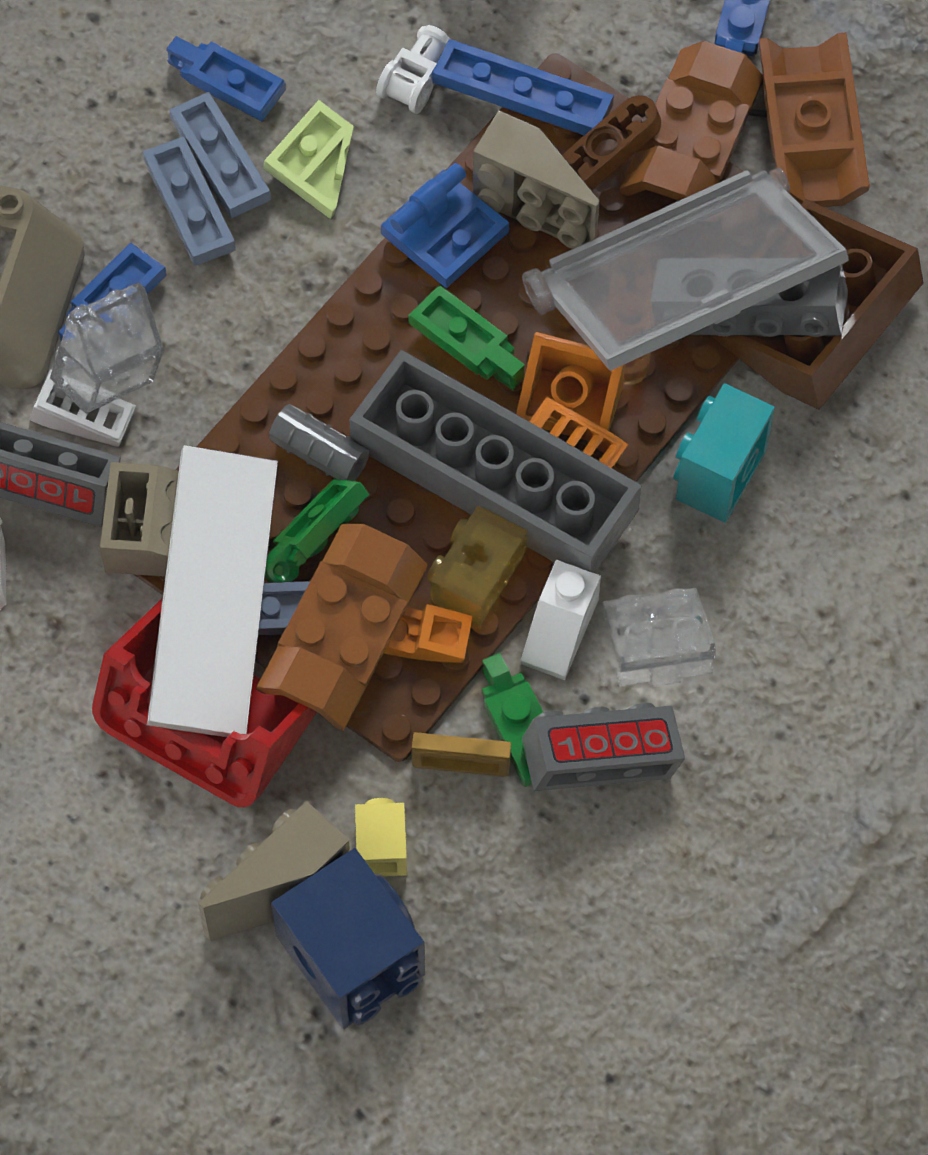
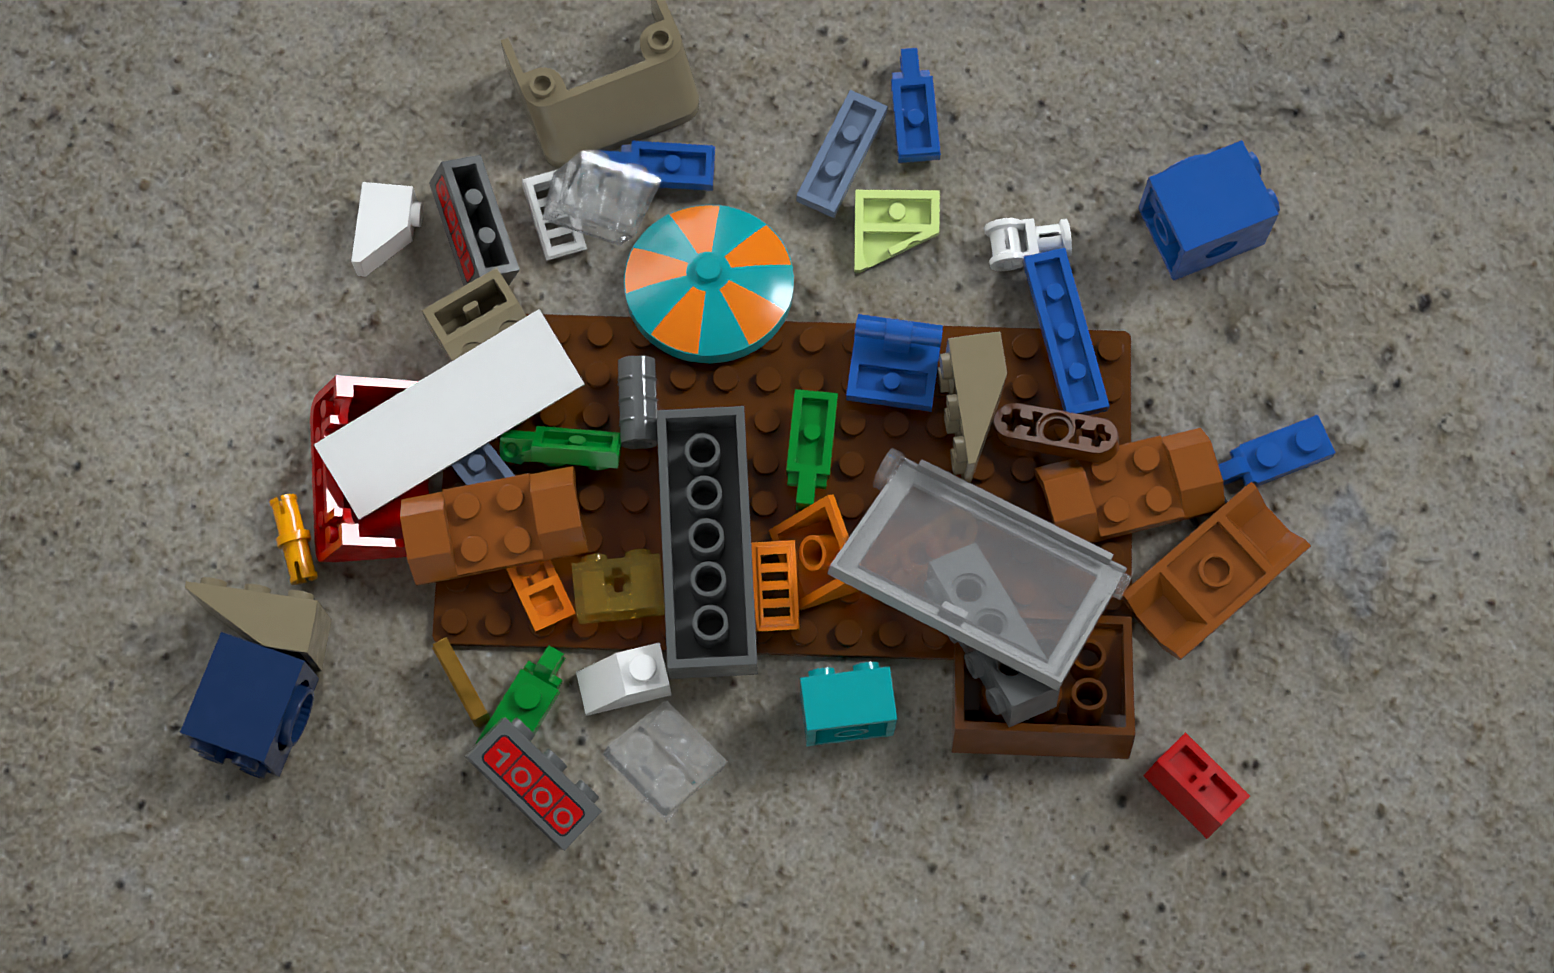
camera: 55 degrees right, 10 degrees up
(189, 201) = (784, 160): sand blue plate -> none
(211, 814) = (293, 539): none -> light orange pin
(252, 328) = (709, 283): none -> dish
(382, 836) = (355, 671): light yellow brick -> none

